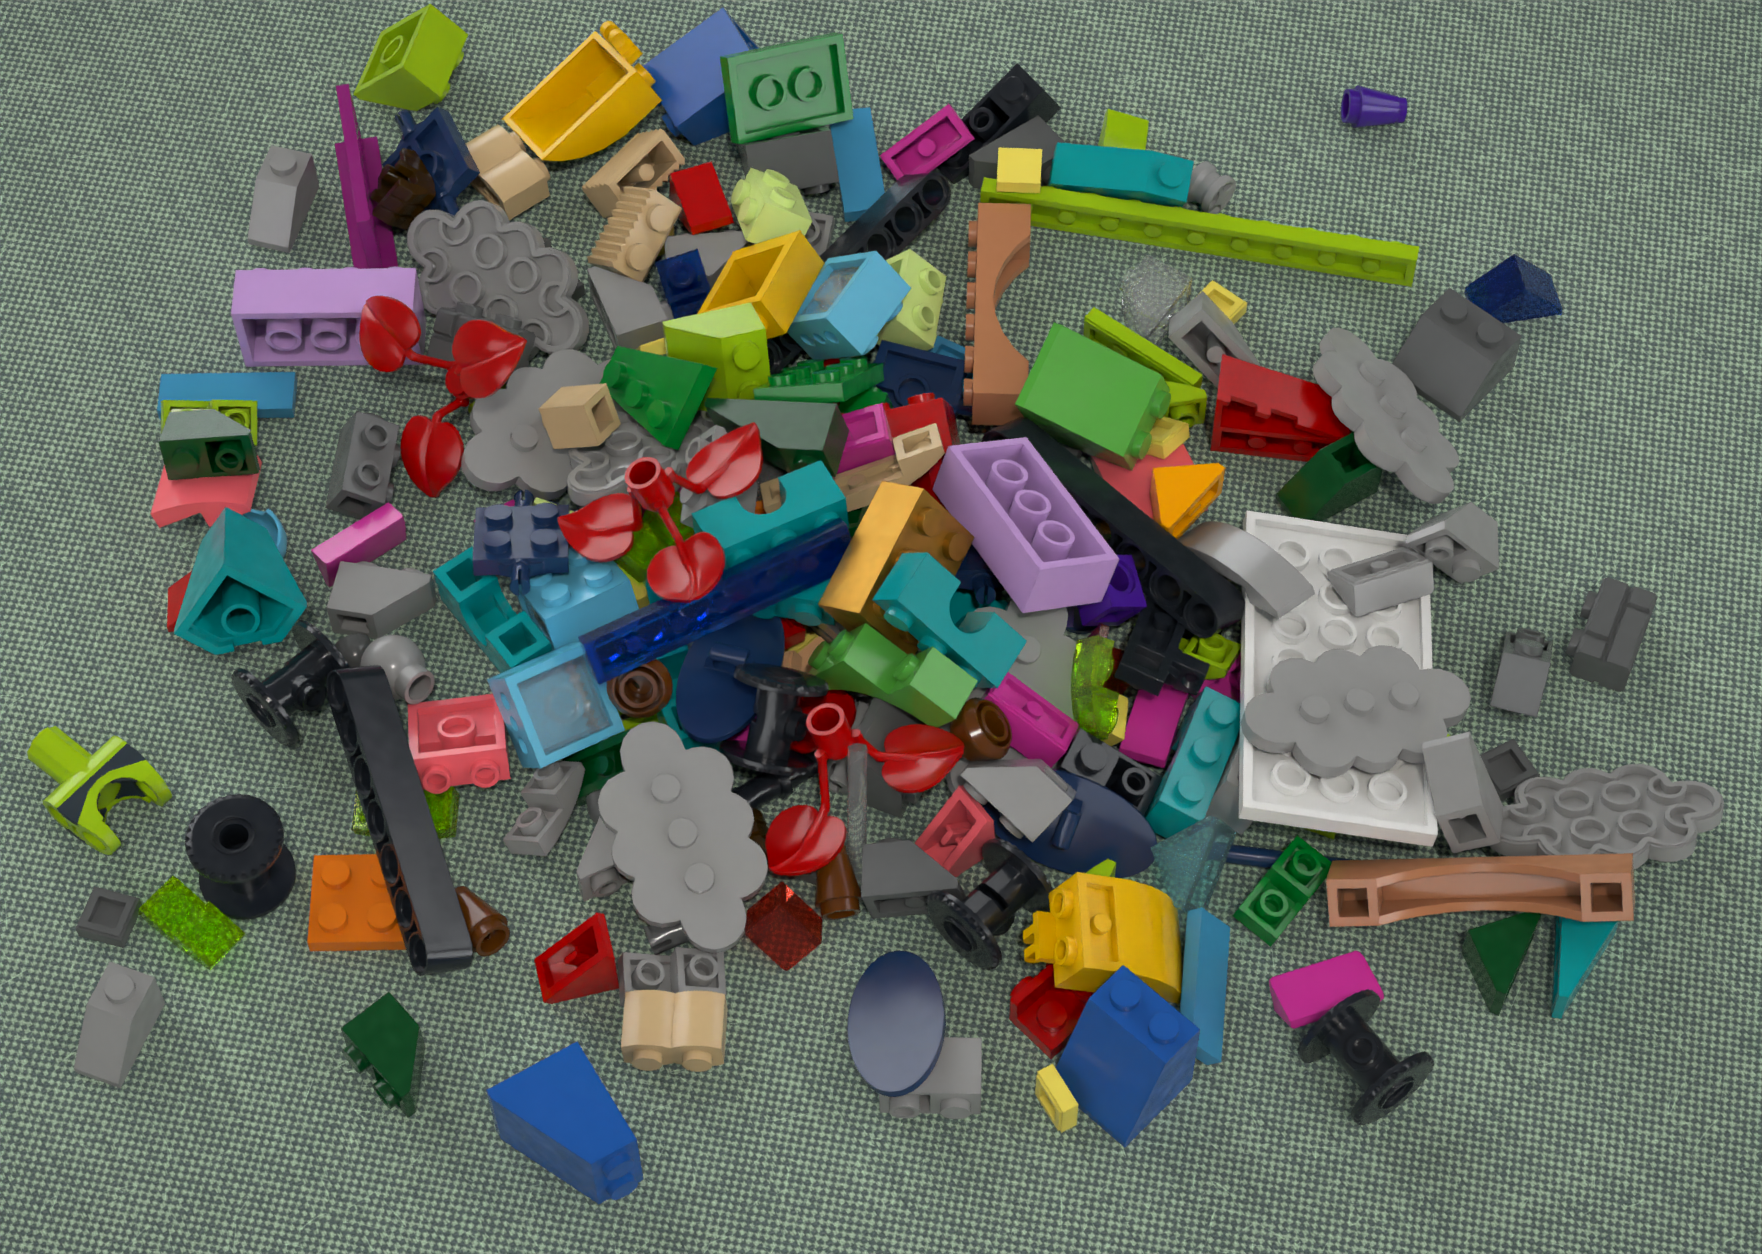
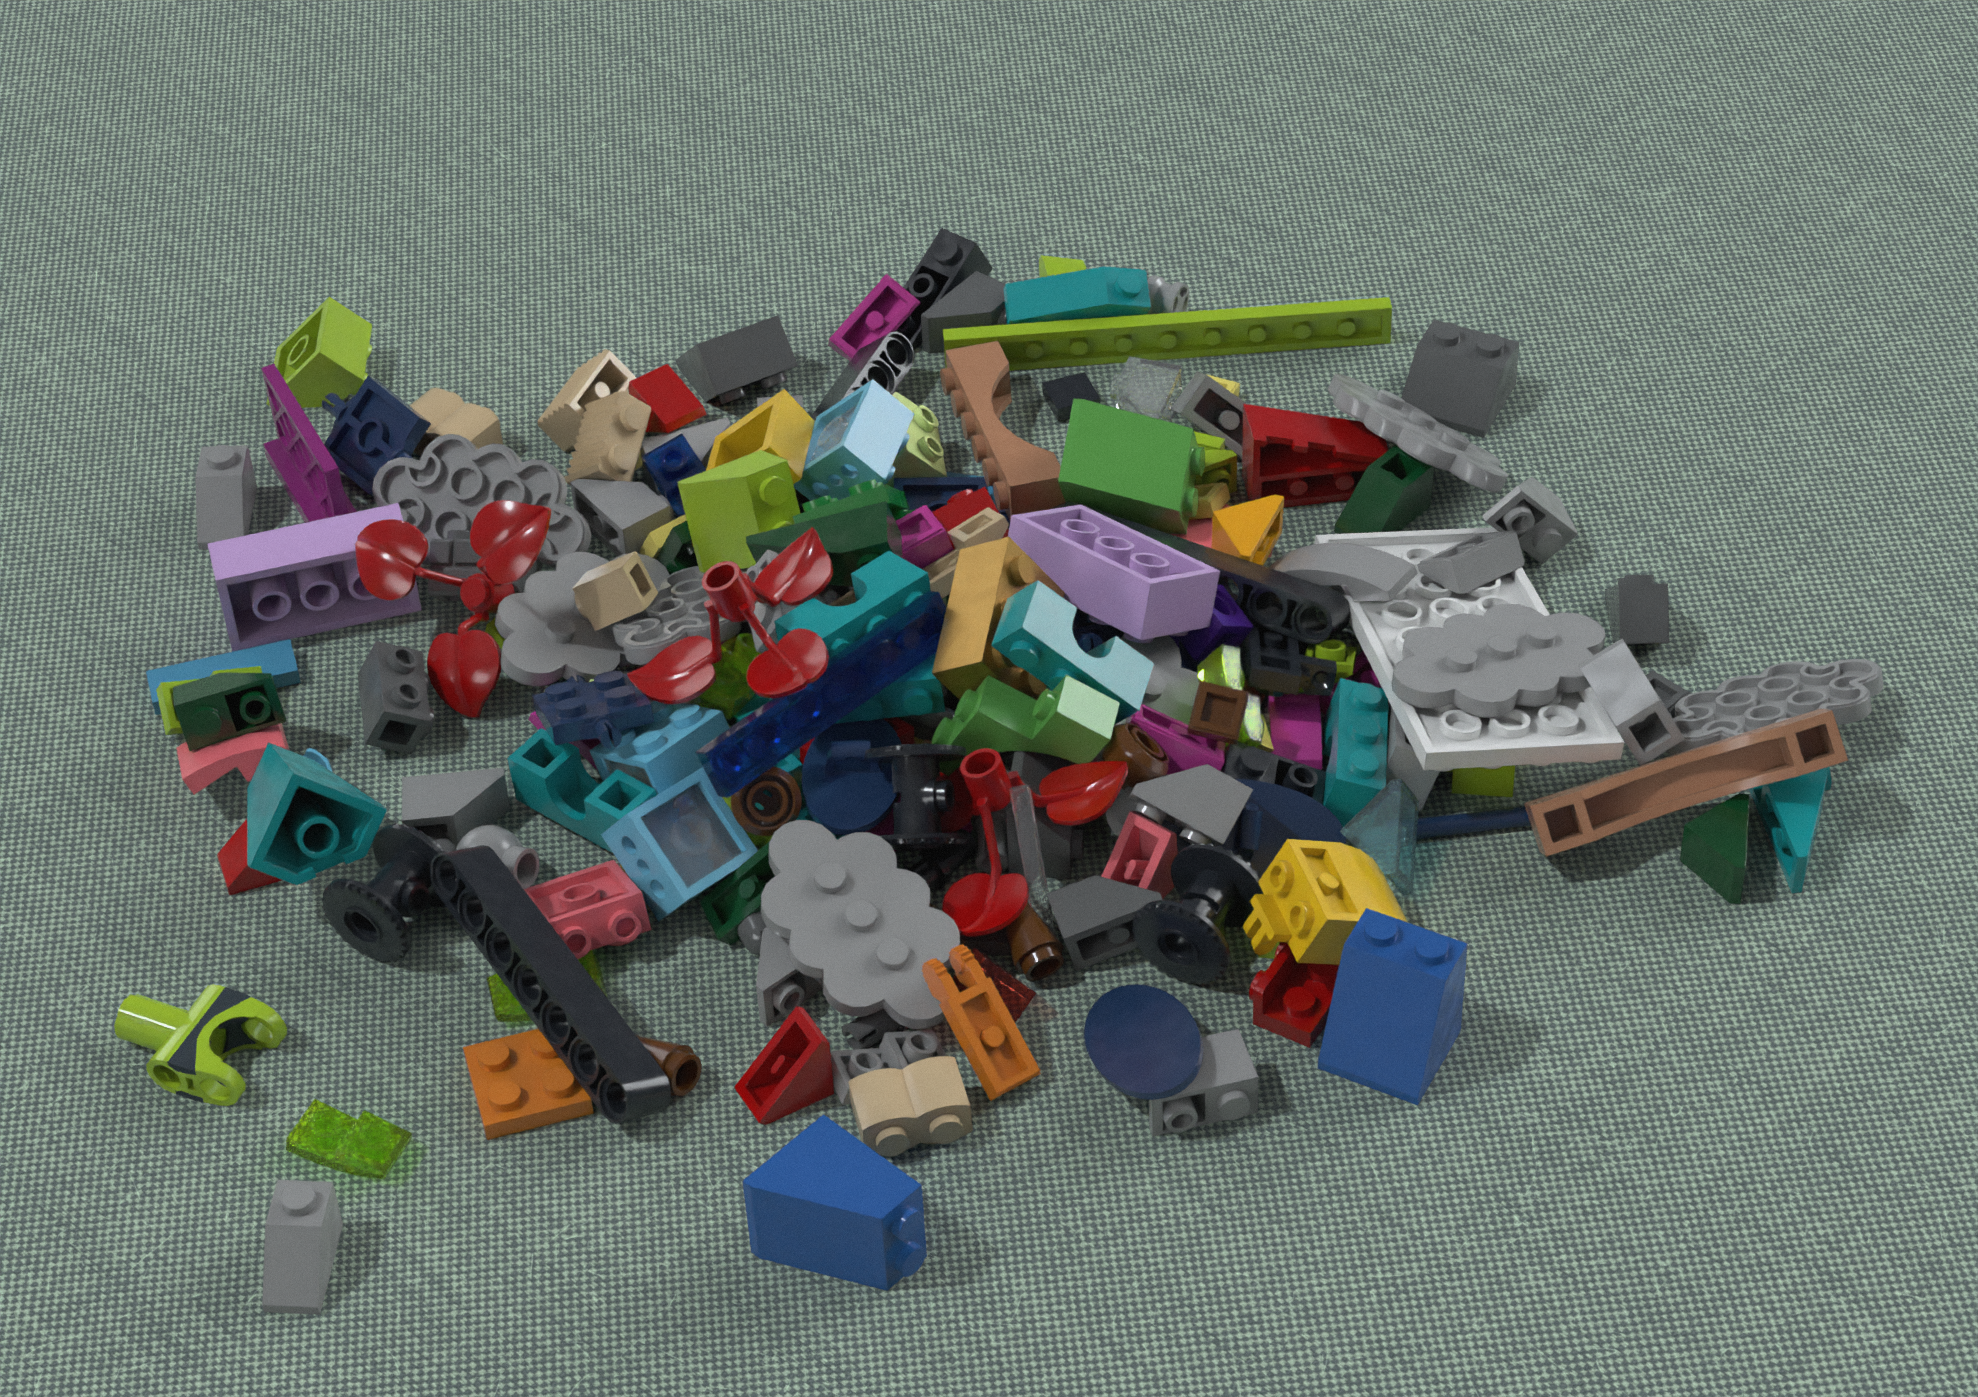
camera: 15 degrees left, 15 degrees down
(108, 917) = (253, 1158): dark grey tile -> none
(240, 856) = (385, 1043): black hose -> none
(361, 541) = (426, 753): dark pink slope -> none
(390, 1049) = (608, 1198): dark green slope -> none
(403, 190) = (357, 456): dark brown hand -> none
(550, 803) = (701, 946): light grey slope -> none
(586, 99) = (519, 344): yellow piece -> none
(658, 391) = (686, 545): green wing -> none
(692, 80) = (640, 310): blue slope -> none
(759, 969) = (981, 1023): none -> orange hinge
(769, 206) = (735, 389): yellowish green brick -> none
(786, 88) = (720, 289): green plate -> none
(857, 163) = (816, 361): dark azure tile -> none
(1019, 170) = (977, 313): light yellow tile -> none
(1056, 1098) = (1334, 1071): light yellow tile -> none
(1072, 704) = (1218, 712): none -> reddish brown tile
(1085, 276) = (1061, 392): none -> black tile
(1205, 981) = (1432, 911): dark azure tile -> none
(1283, 891) = (1484, 844): green slope -> none
(1313, 990) = (1561, 915): dark pink slope -> none
(1365, 1057) = (1632, 953): black hose -> none
(1372, 107) = (1292, 209): dark purple cone -> none
(1515, 292) = (1496, 314): clear blue slope -> none
(1612, 634) = (1708, 564): dark grey brick -> none

